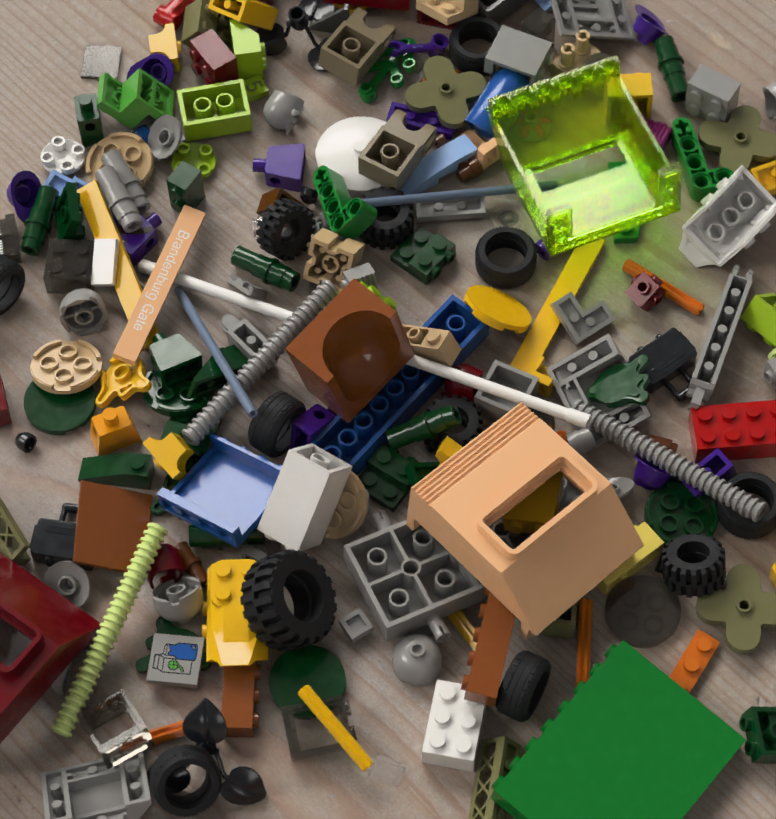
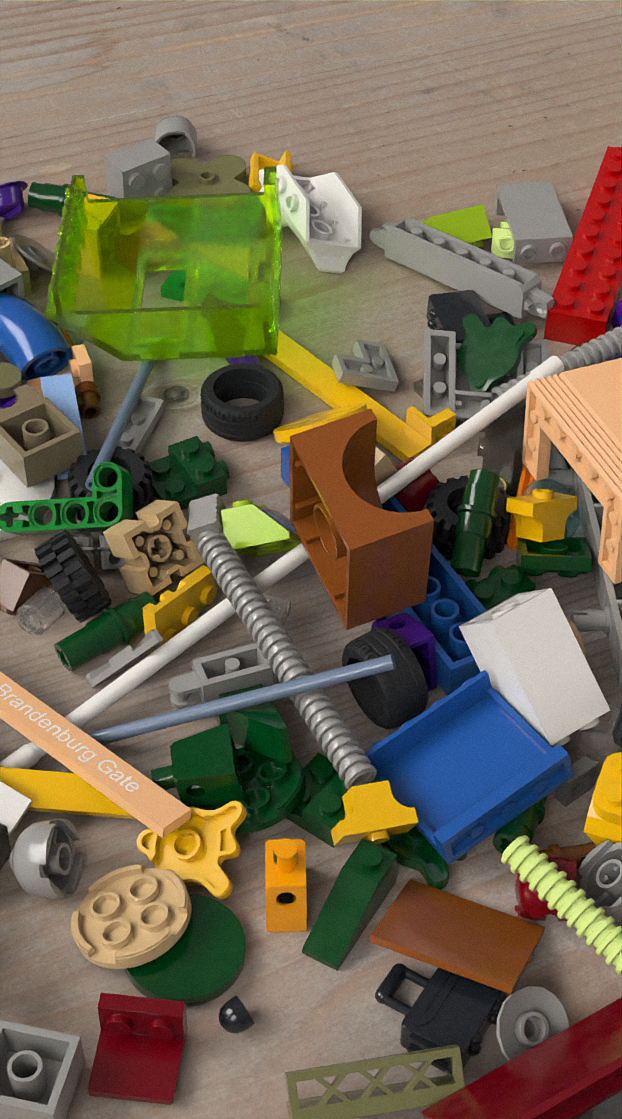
camera: 70 degrees left, 15 degrees down
(284, 294) = (180, 607): none -> yellow wing
(308, 195) = (18, 551): black hinge -> none
(508, 376) = (471, 455): light grey piece -> none
(646, 290) = (363, 305): dark red brick -> none
(672, 292) = (357, 300): orange axle -> none

